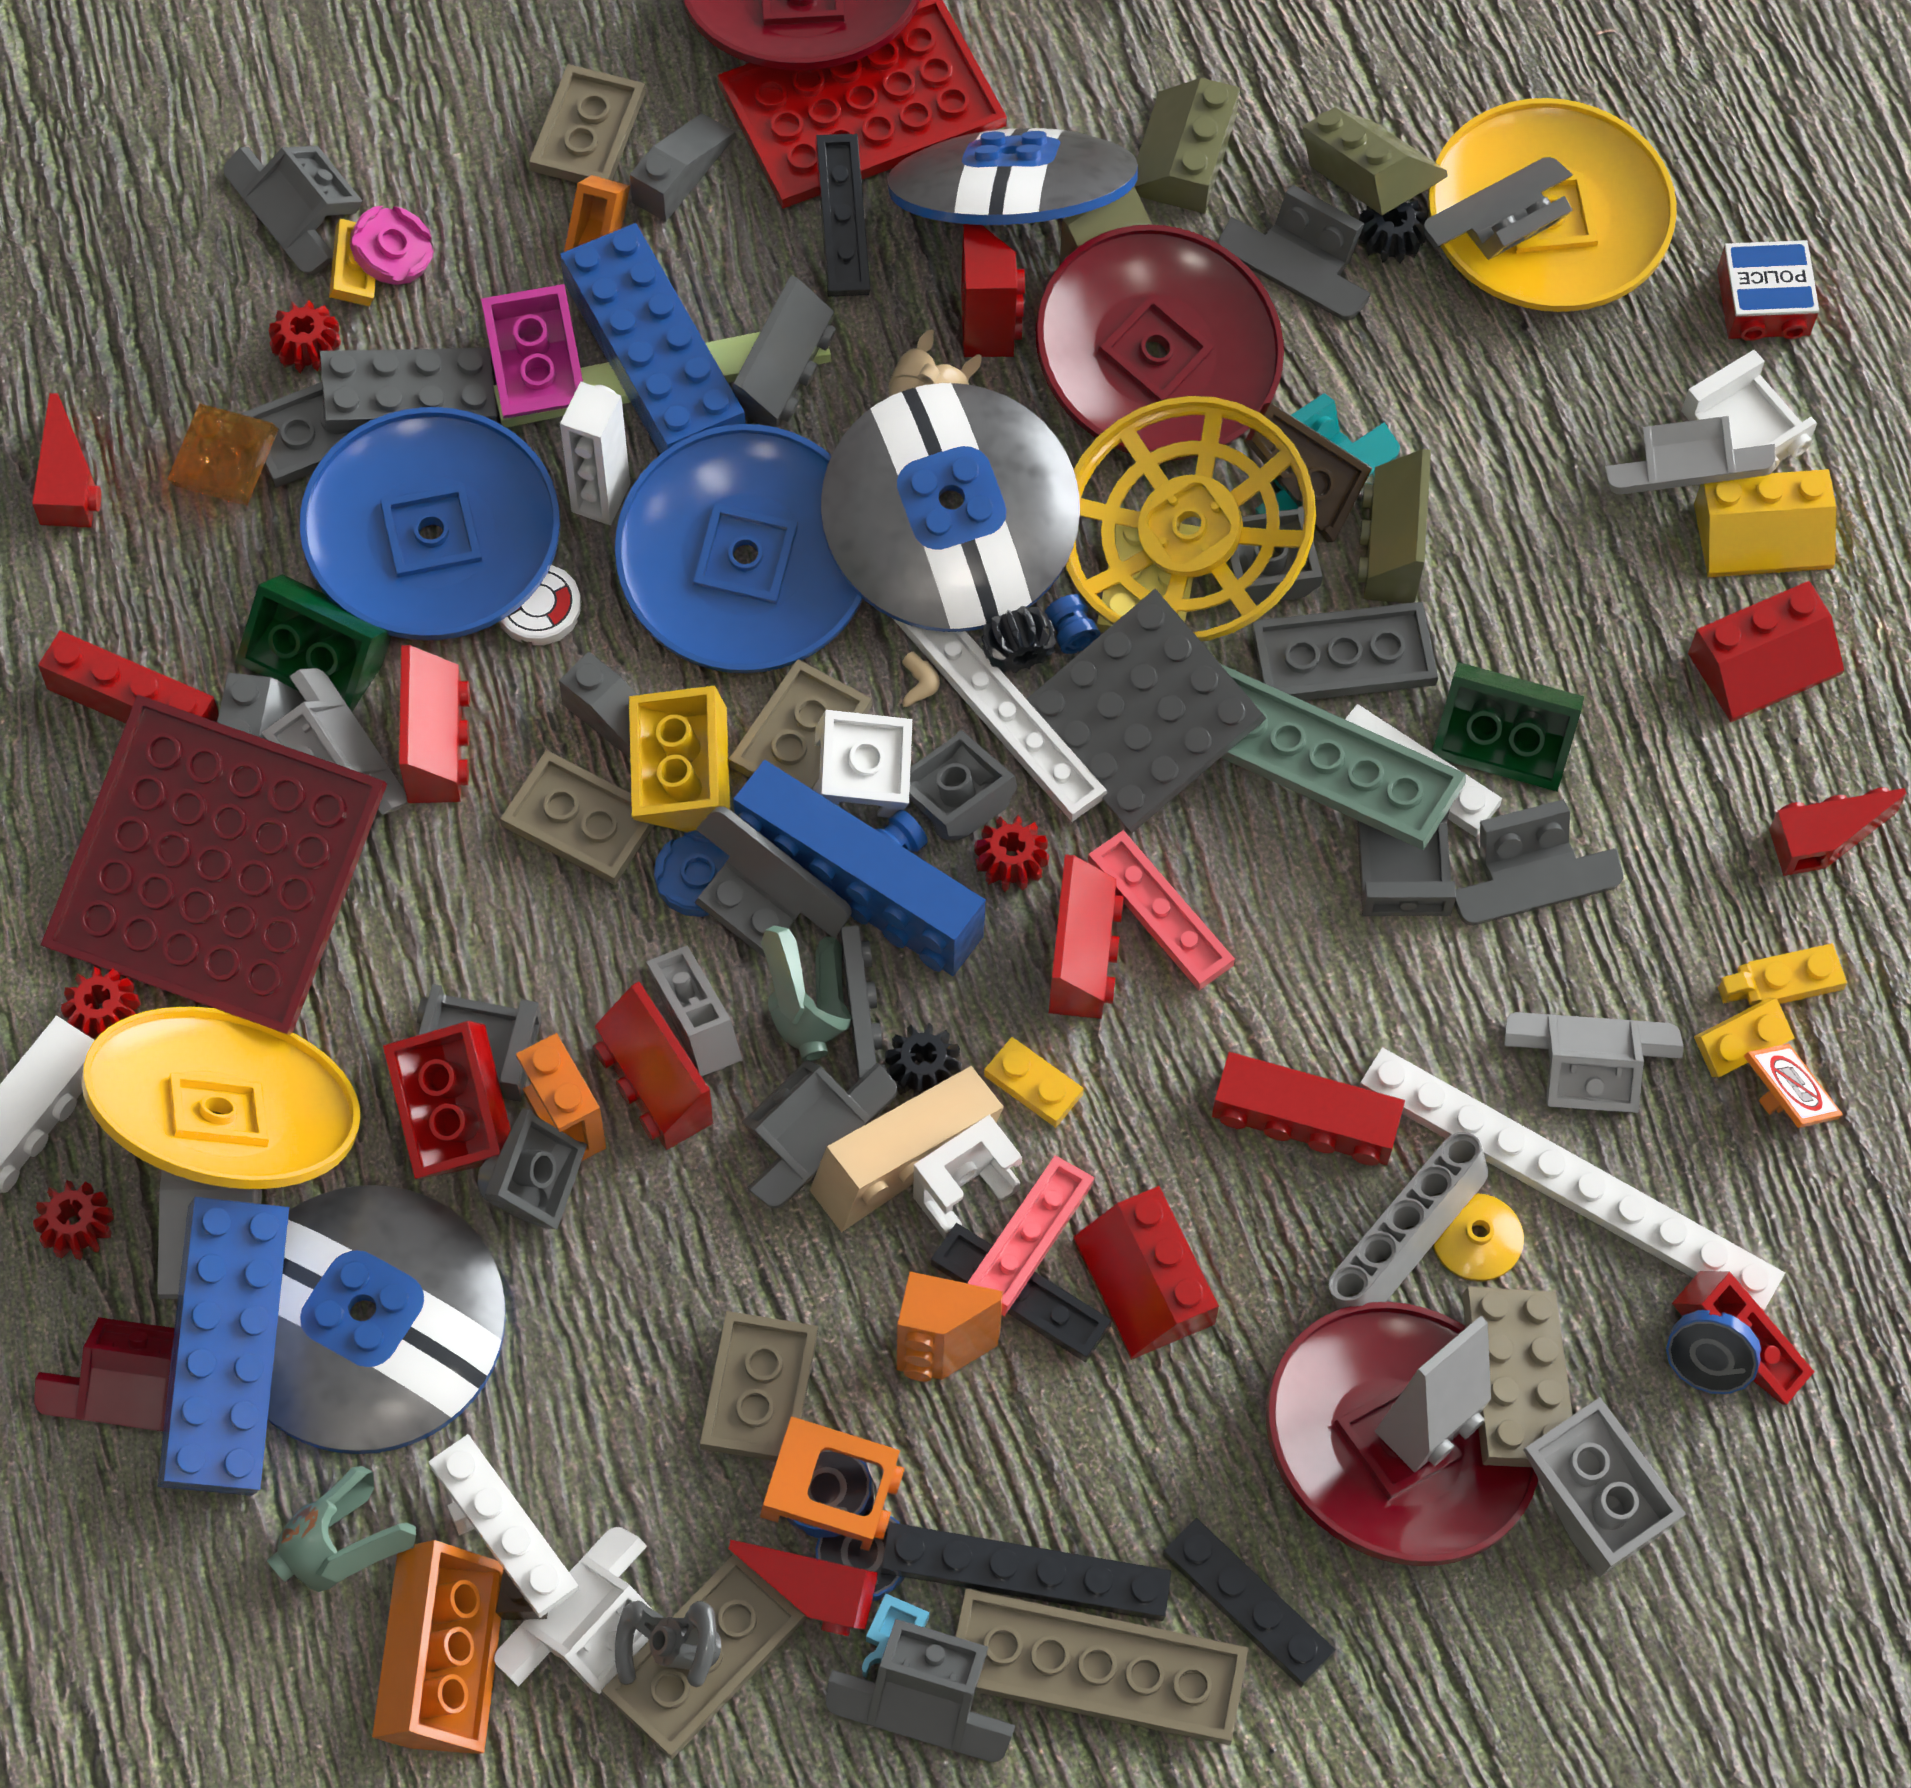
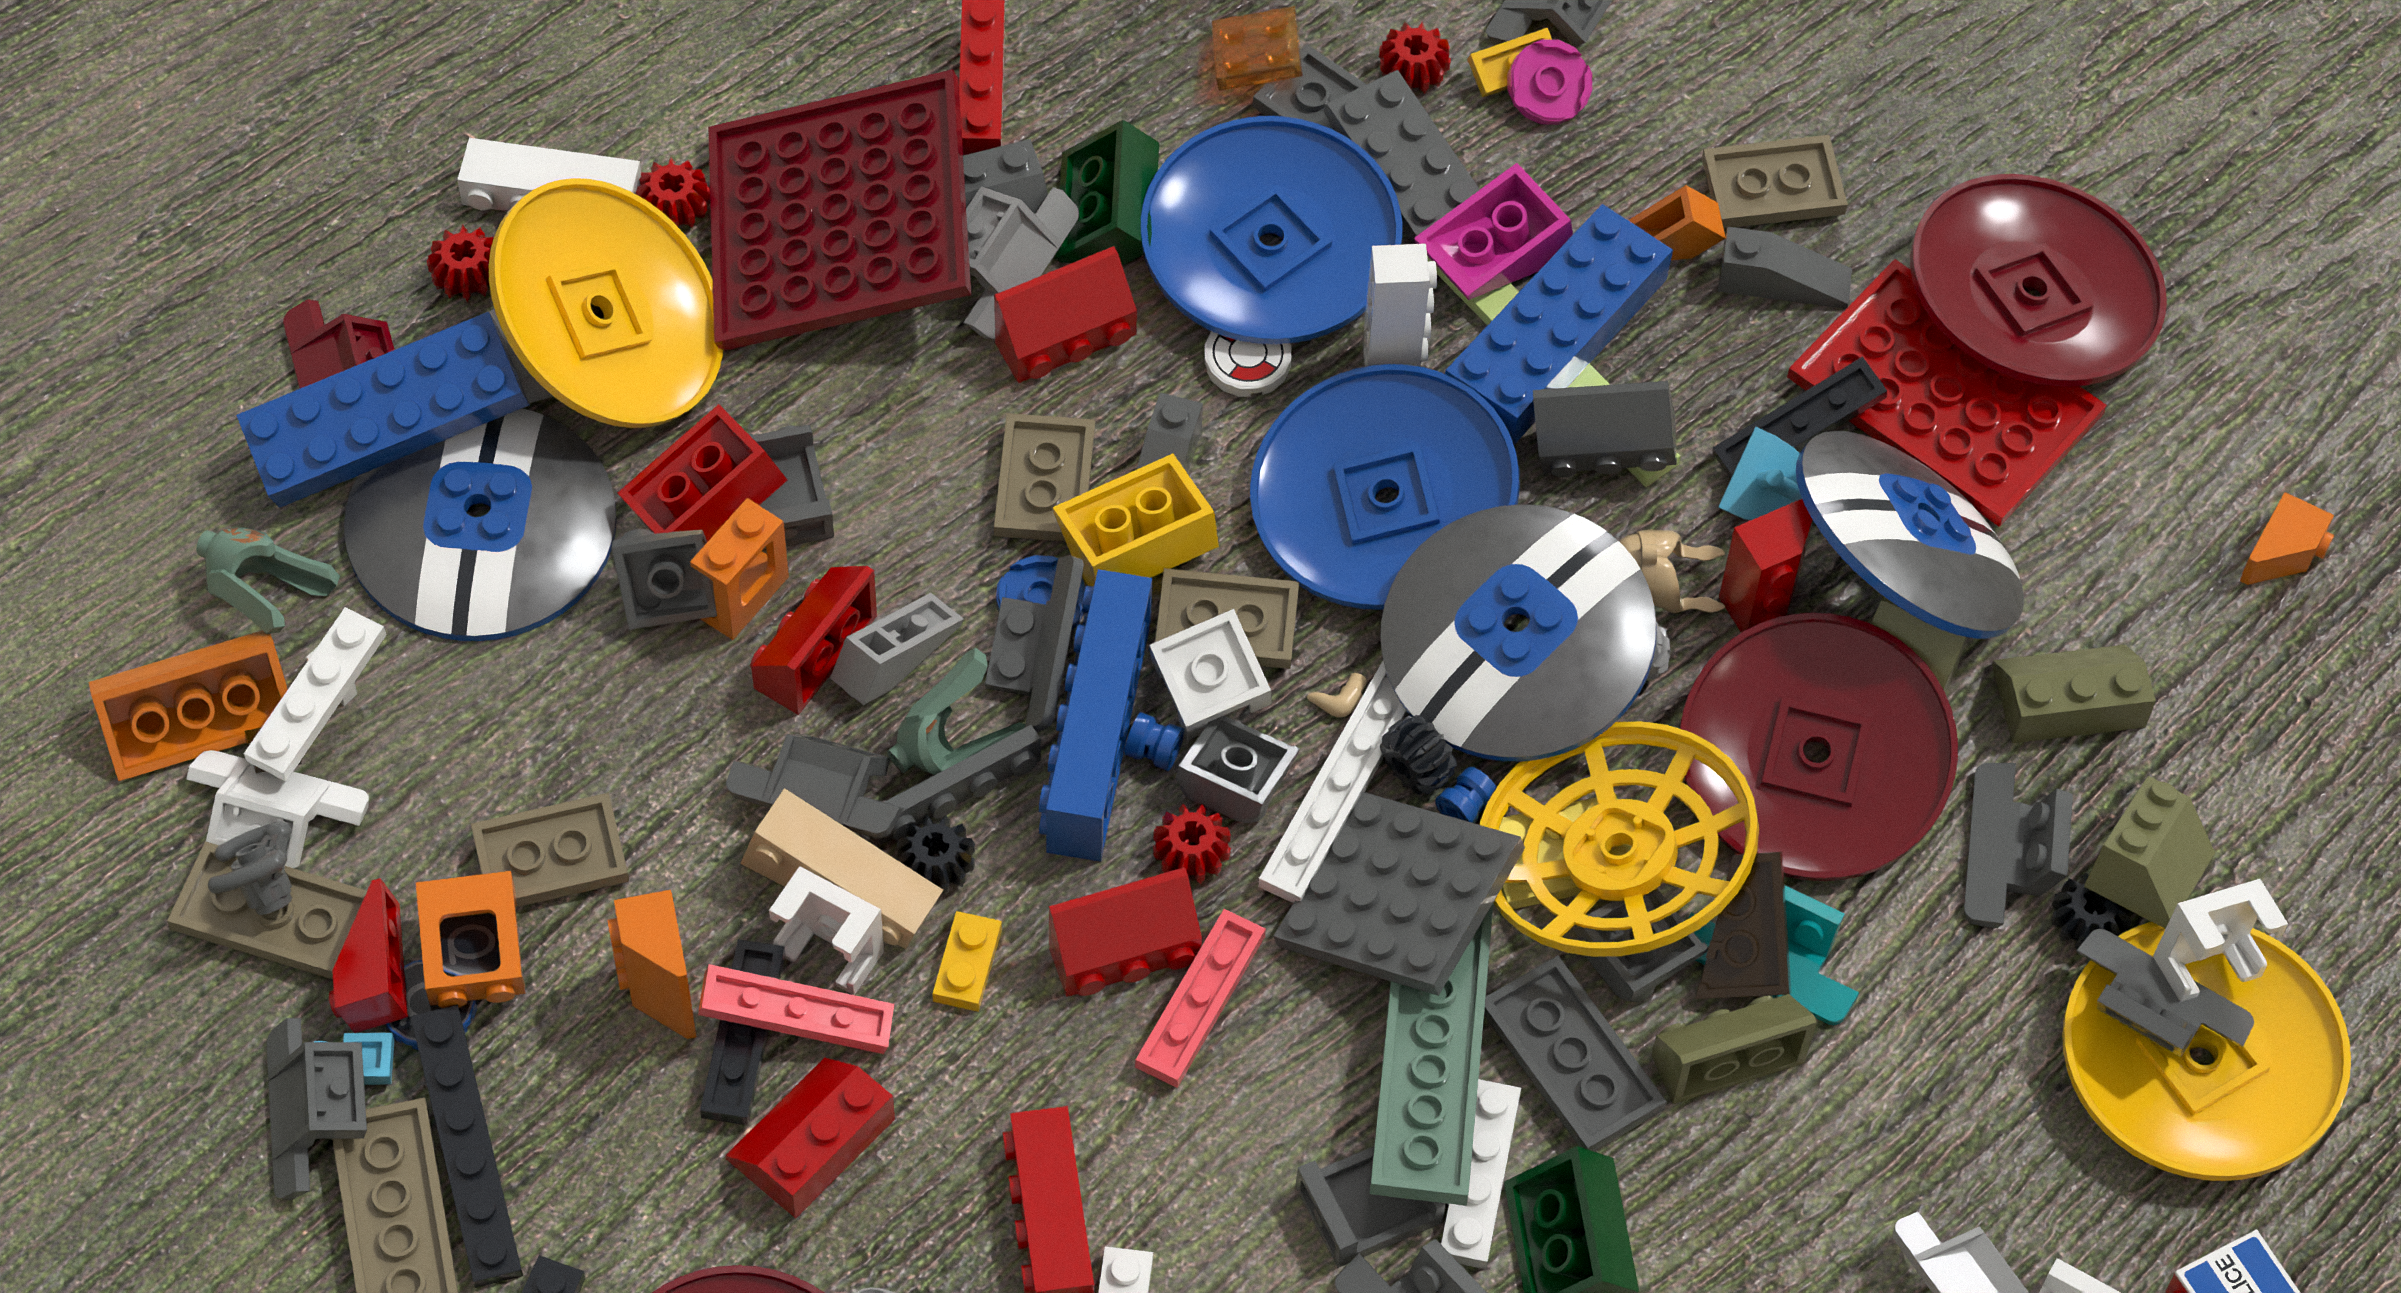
camera: 65 degrees right, 5 degrees down
(886, 263) = (1762, 478): none -> medium azure shield
(1488, 138) = (2216, 926): none -> white panel

